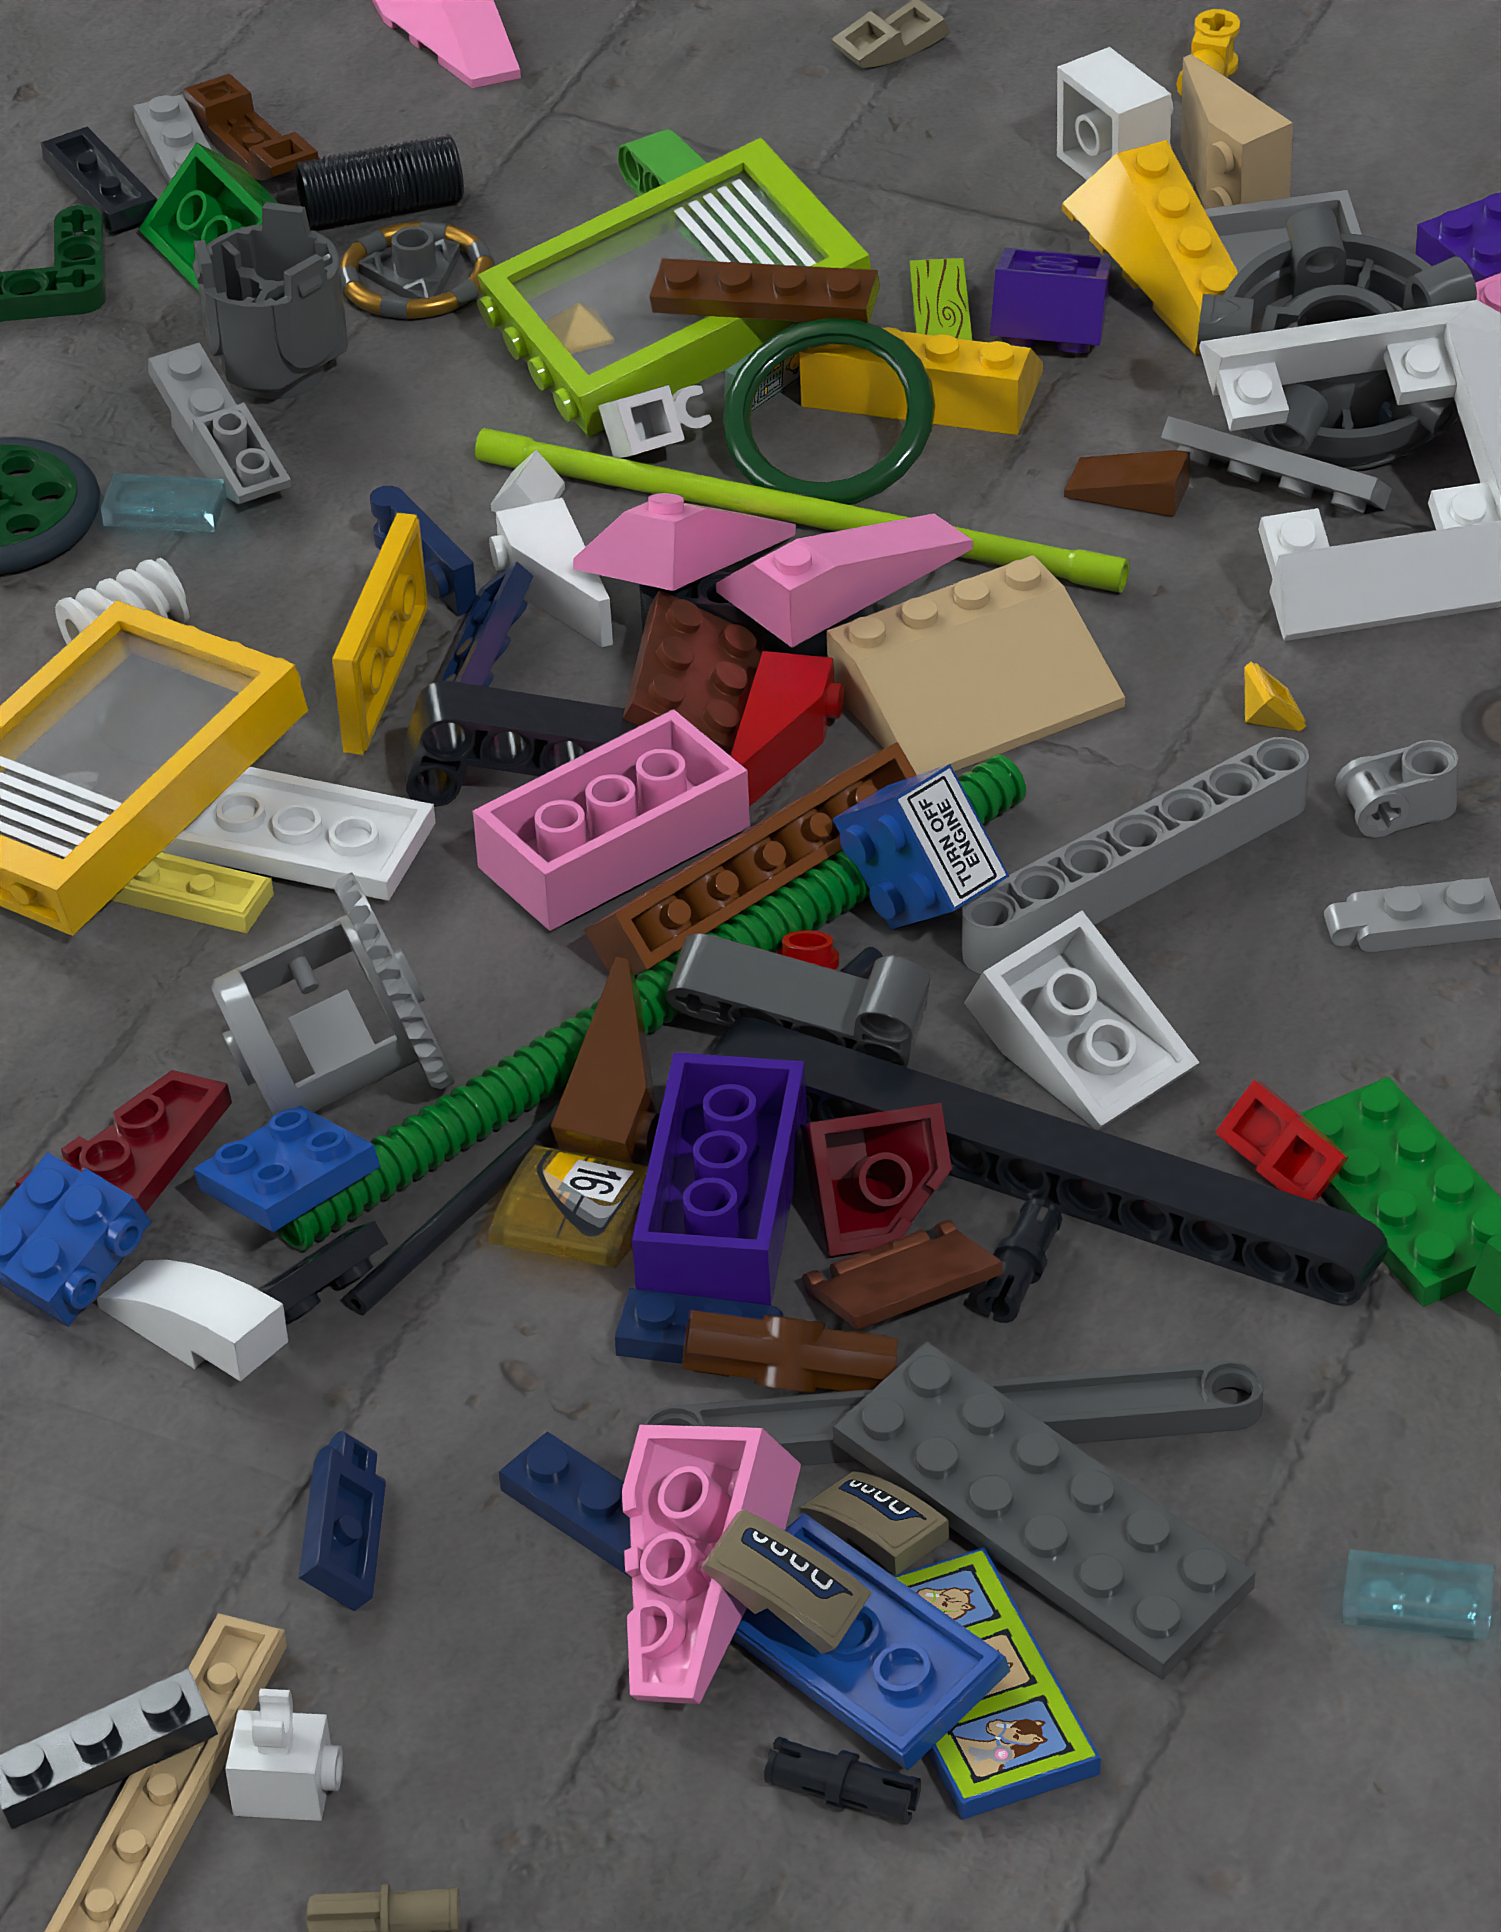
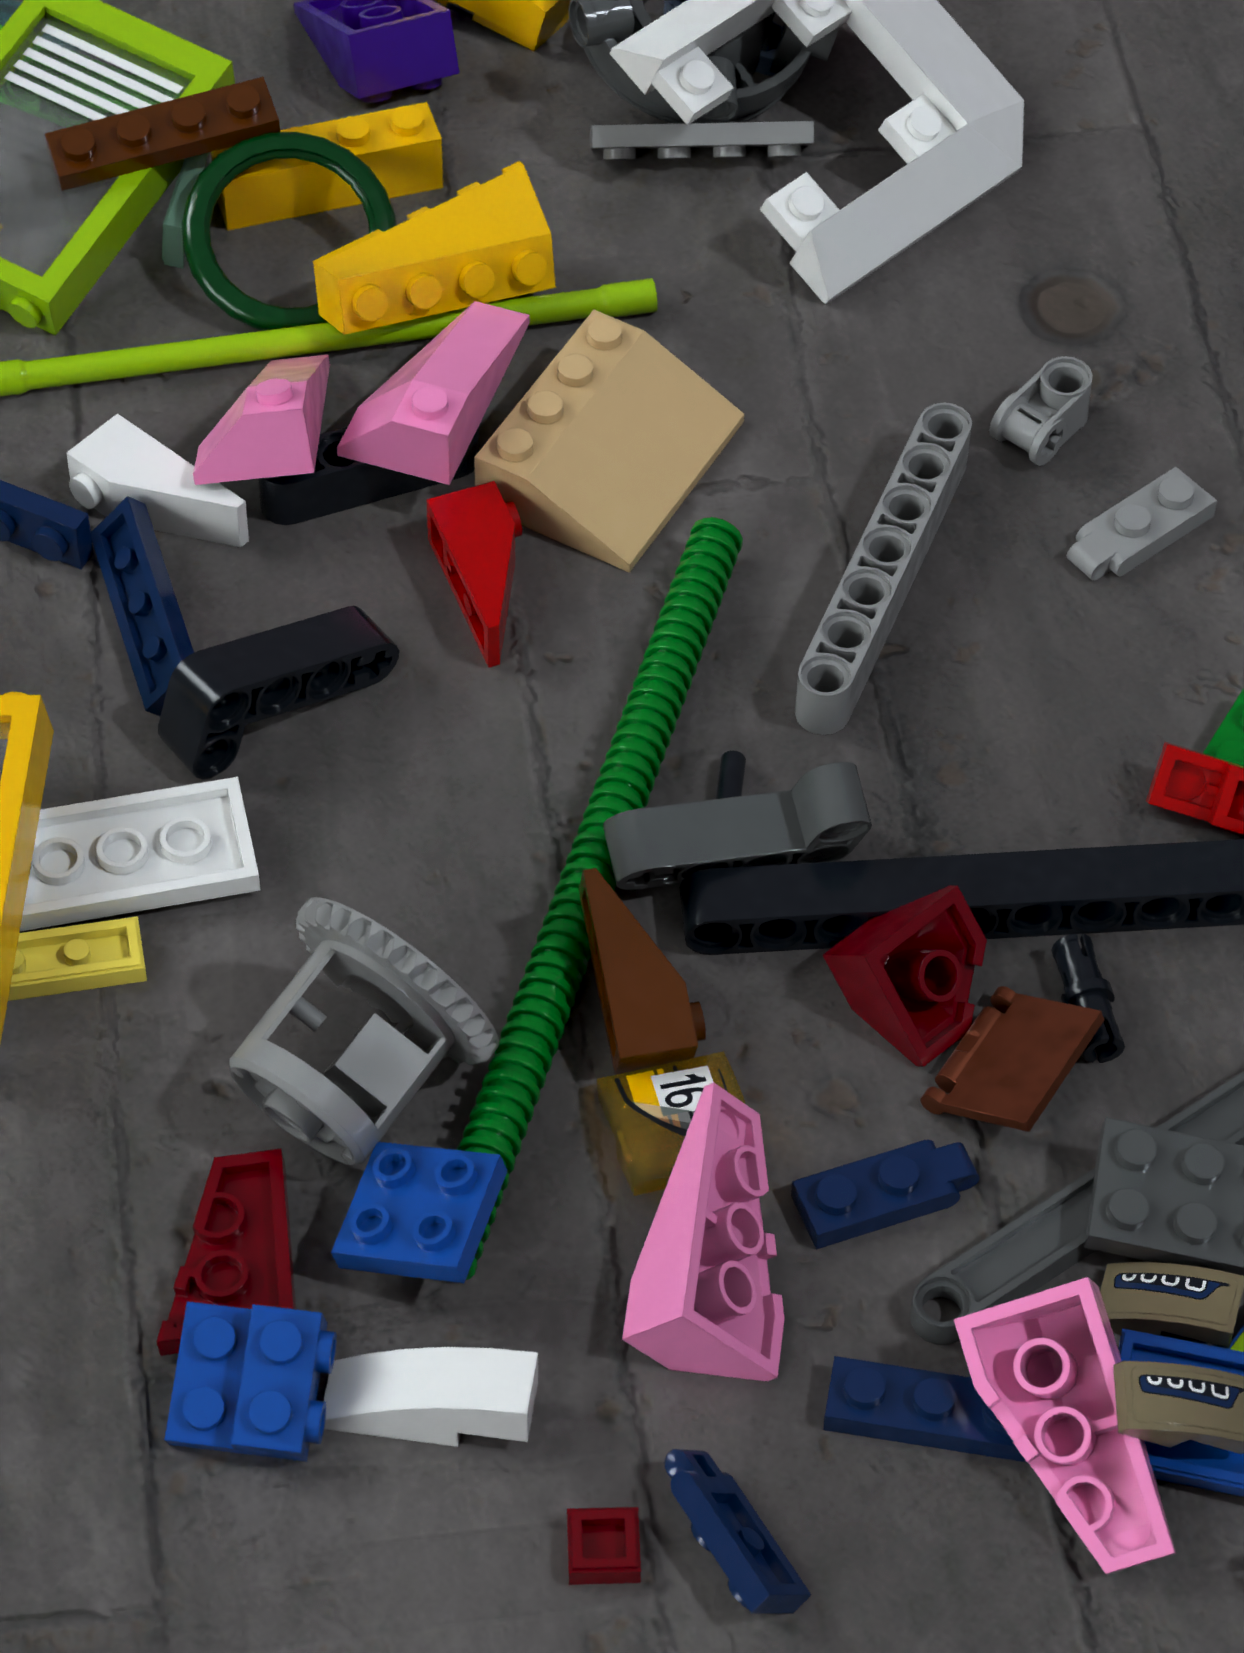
camera: 35 degrees left, 10 degrees up
(240, 1487) = (603, 1545): none -> dark red tile
(338, 1260) = (512, 1291): black plate -> none
(380, 633) = (60, 622): yellow tile -> none
(449, 1217) = (576, 1153): black piece -> none
(496, 1319) = (703, 1272): none -> bright pink wedge
(529, 484) = (51, 413): white slope -> none
(611, 819) = (419, 725): bright pink brick -> none
(649, 420) = (123, 302): white brick -> none
(695, 667) = (374, 549): copper plate -> none
(721, 1177) = (802, 1039): dark purple brick -> none
(742, 868) = (581, 716): dark orange brick -> none
(787, 1352) = (987, 1181): reddish brown piece -> none
(810, 947) = (684, 781): red plate -> none
(920, 847) = (736, 641): brick -> none
(940, 297) = (293, 90): lime tile -> none
(965, 472) = (441, 259): none -> yellow wedge
(1079, 1023) = (967, 750): white slope -> none
(1133, 480) = (592, 195): reddish brown slope -> none
(1269, 701) = (869, 372): yellow slope -> none

